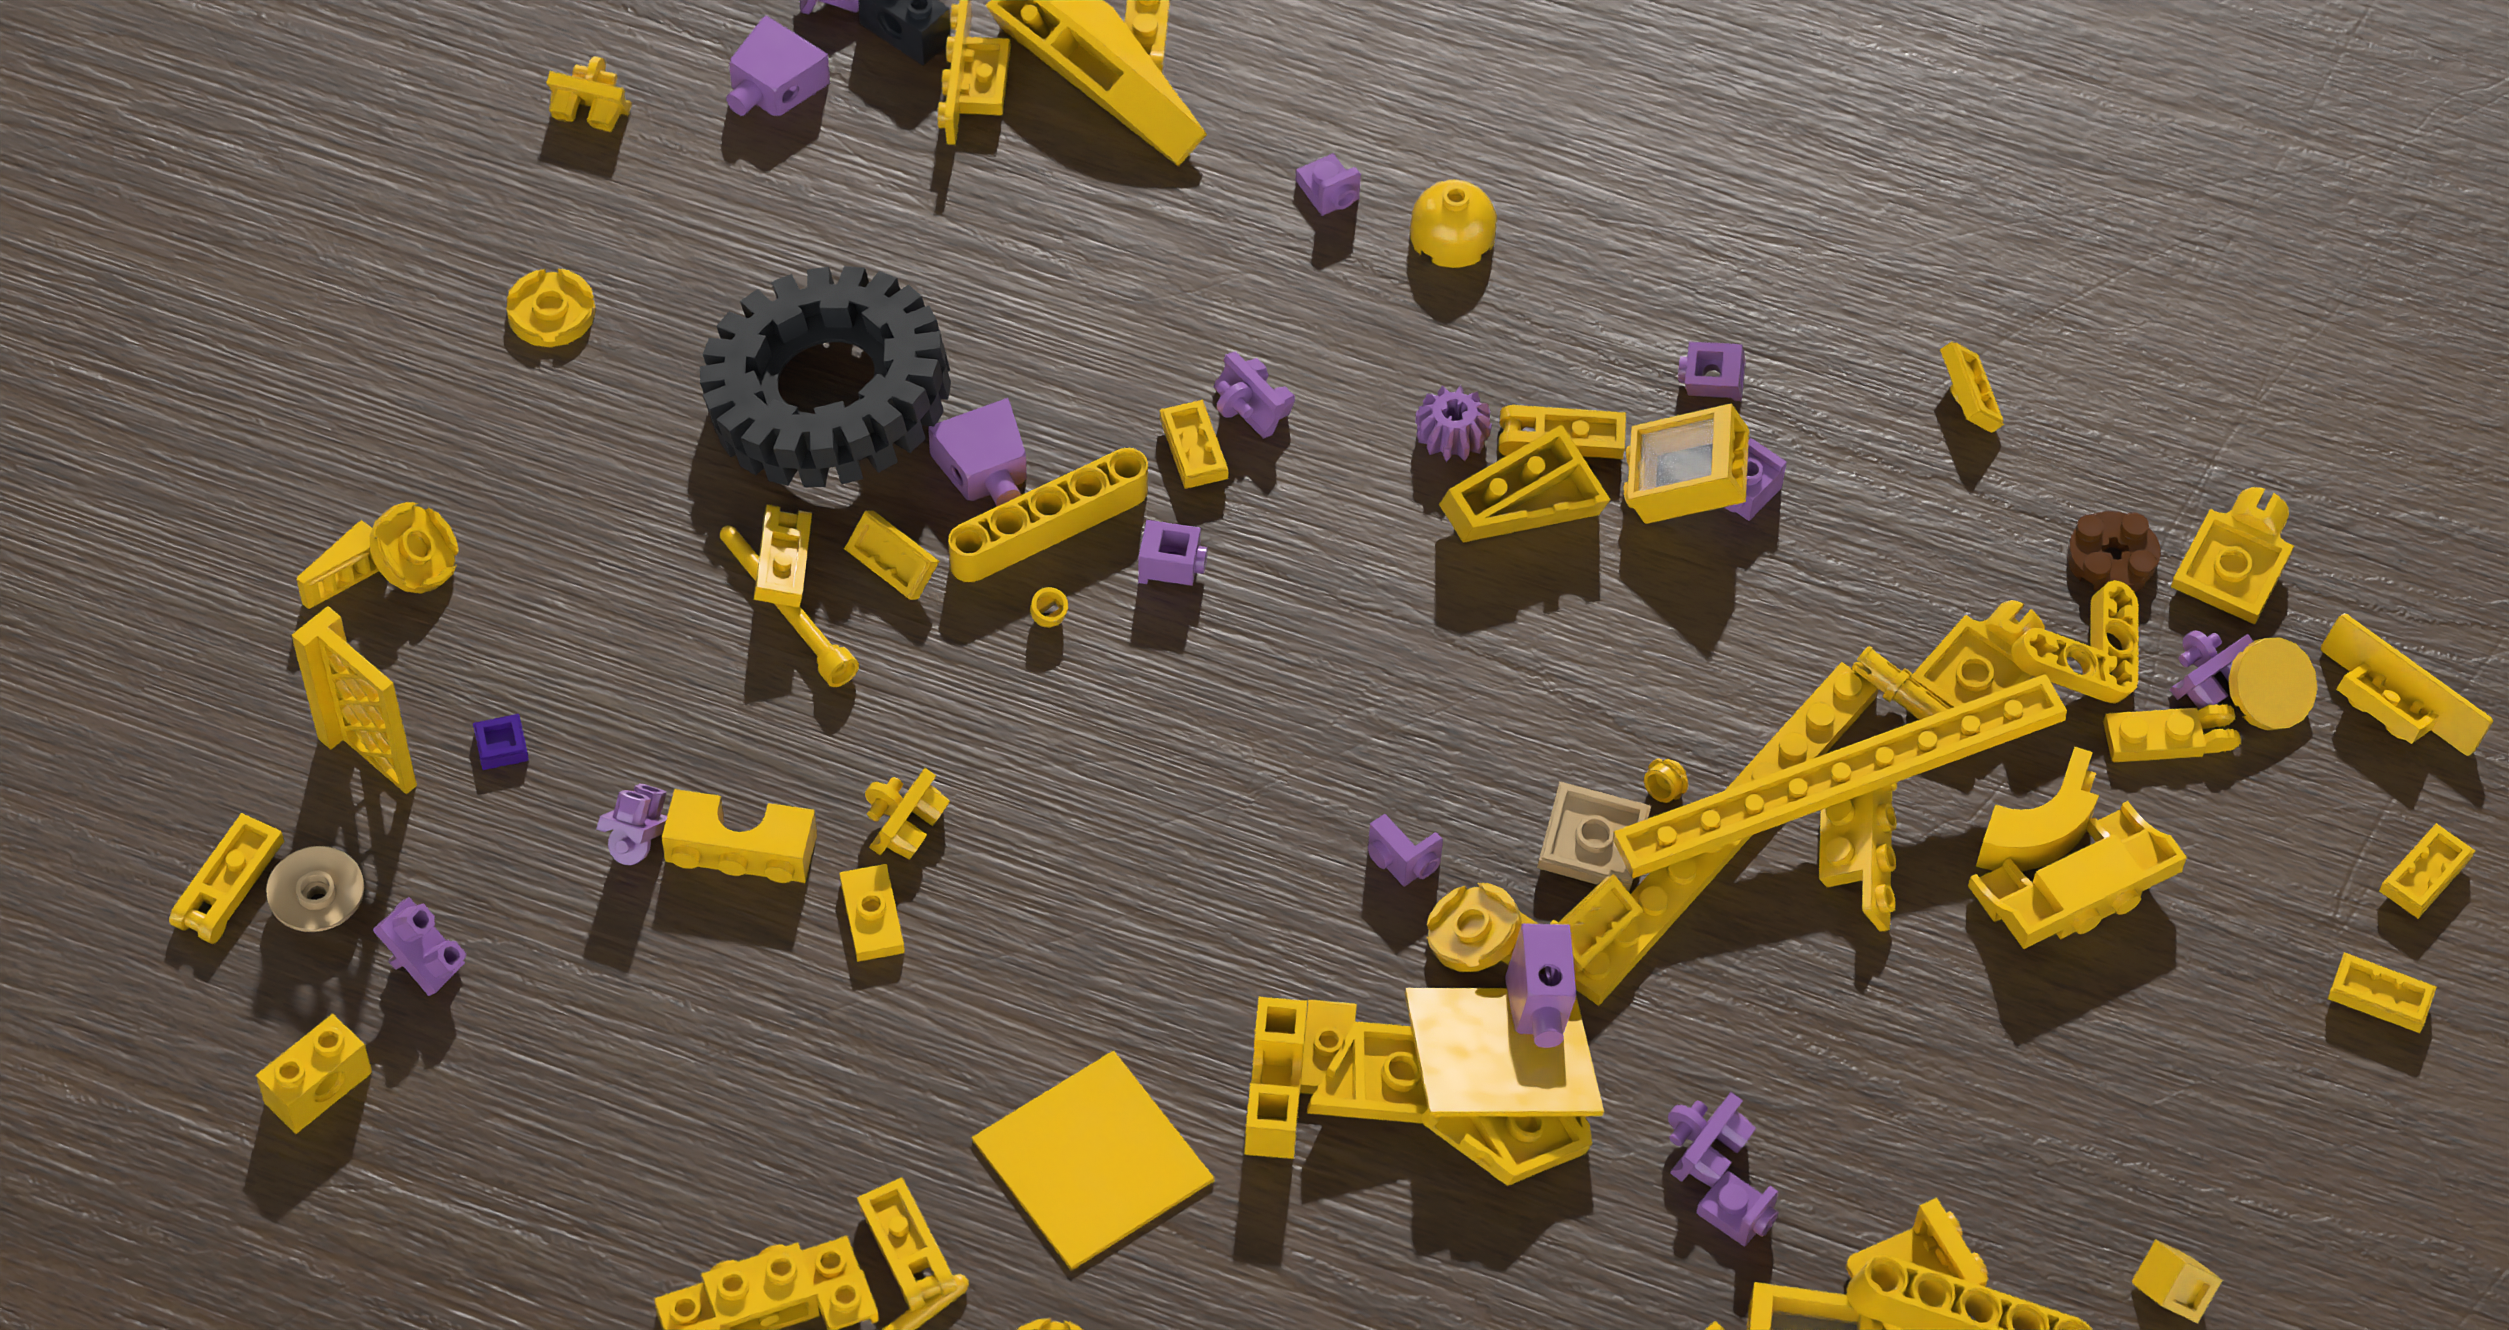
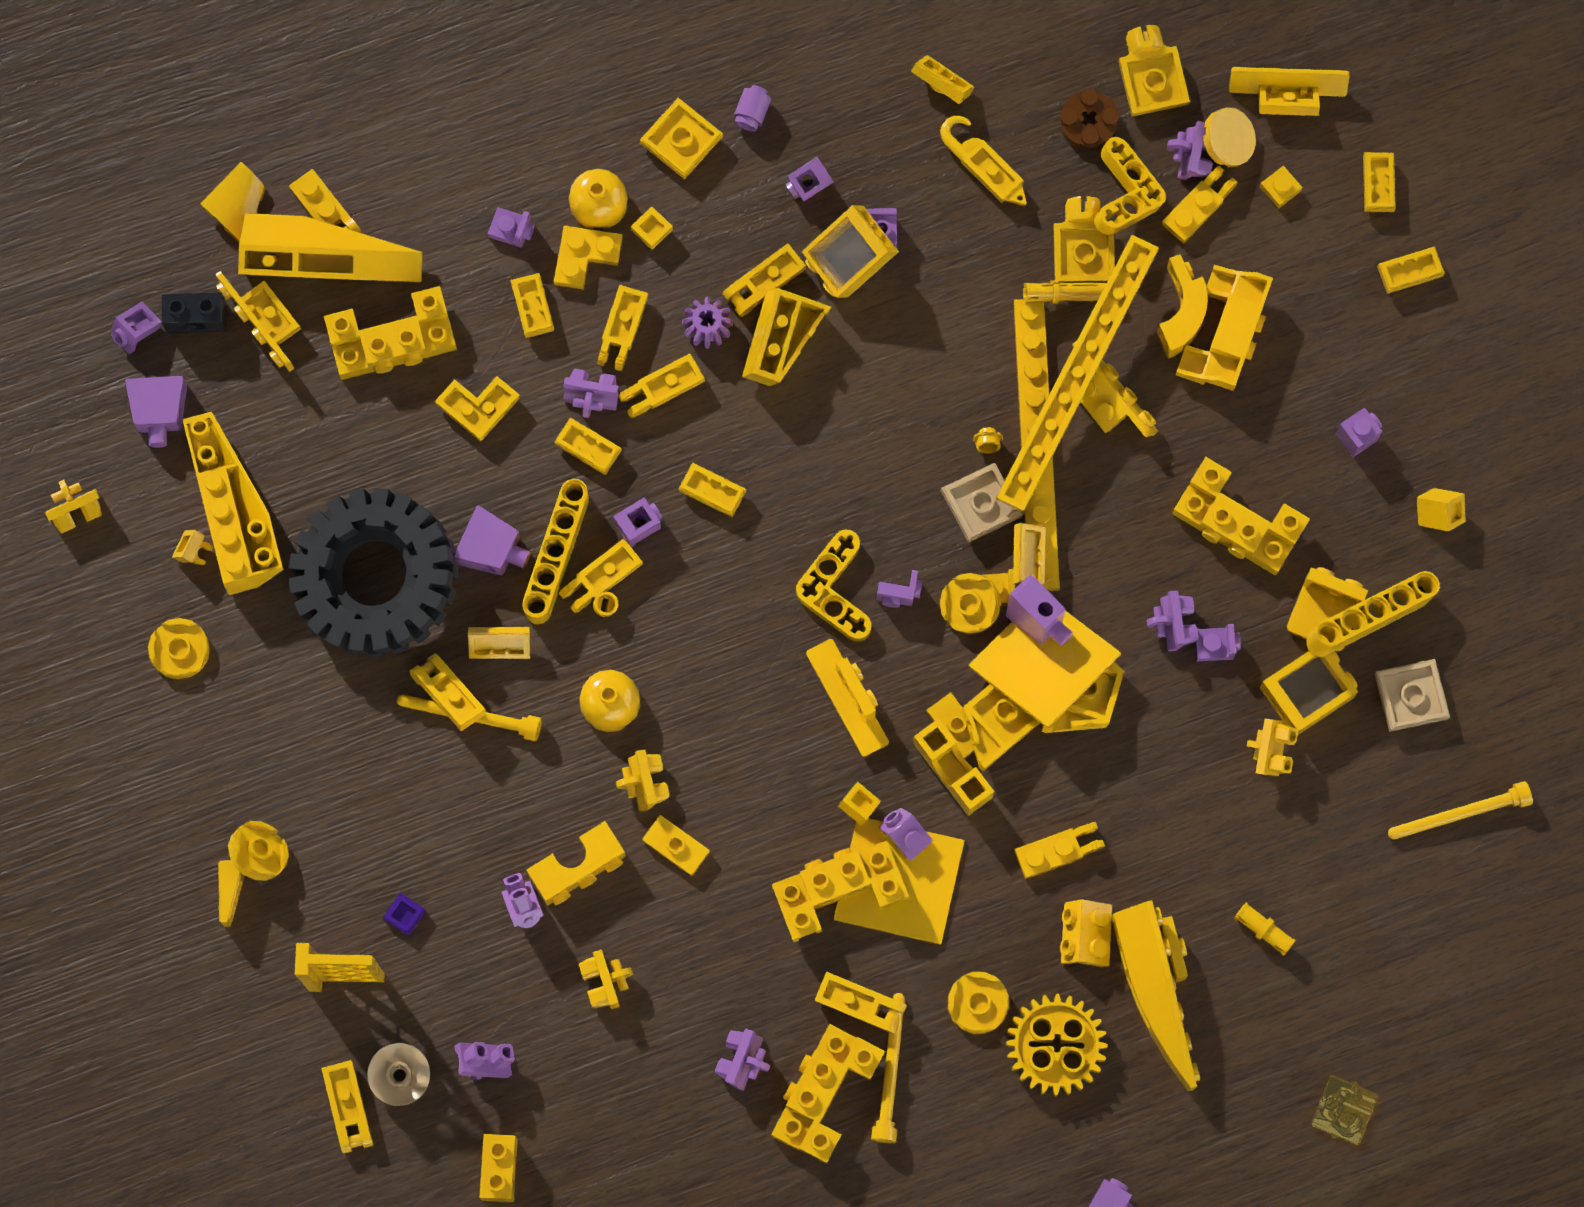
camera: 40 degrees left, 20 degrees up
(650, 983) = (597, 967): none -> yellow hips
(663, 219) = (188, 547): none -> yellow tile
(708, 1193) = (746, 1061): none -> medium lavender hips
(740, 215) = (233, 509): none -> yellow wedge
(953, 706) = (609, 700): none -> yellow cylinder
(1013, 1089) = (835, 880): none -> yellow bracket
(1078, 576) = (603, 574): none -> yellow hinge
(1085, 192) = (391, 343): none -> yellow bracket
(1112, 328) = (478, 413): none -> yellow plate
(1126, 1032) = (859, 803): none -> yellow plate
(1148, 1108) = (905, 833): none -> medium lavender bracket
(1229, 916) = (848, 696): none -> yellow bracket
(1274, 269) = (532, 305): none -> yellow plate
(1289, 589) = (712, 489): none -> yellow plate
(1313, 792) = (826, 594): none -> yellow beam
(1316, 1278) = (1056, 850): none -> yellow hinge
(1338, 448) = (663, 385): none -> yellow hinge
(1352, 360) = (622, 324): none -> yellow hinge
(1386, 257) = (579, 248): none -> yellow plate
(1485, 292) = (651, 228): none -> yellow plate
(1607, 234) = (681, 138): none -> yellow plate
(1717, 261) = (752, 108): none -> medium lavender brick
(1888, 1099) = (1234, 524): none -> yellow bracket
(1940, 505) = (985, 164): none -> yellow plate
(2147, 1112) = (1359, 431): none -> medium lavender brick
(2293, 789) = (1280, 187): none -> yellow plate

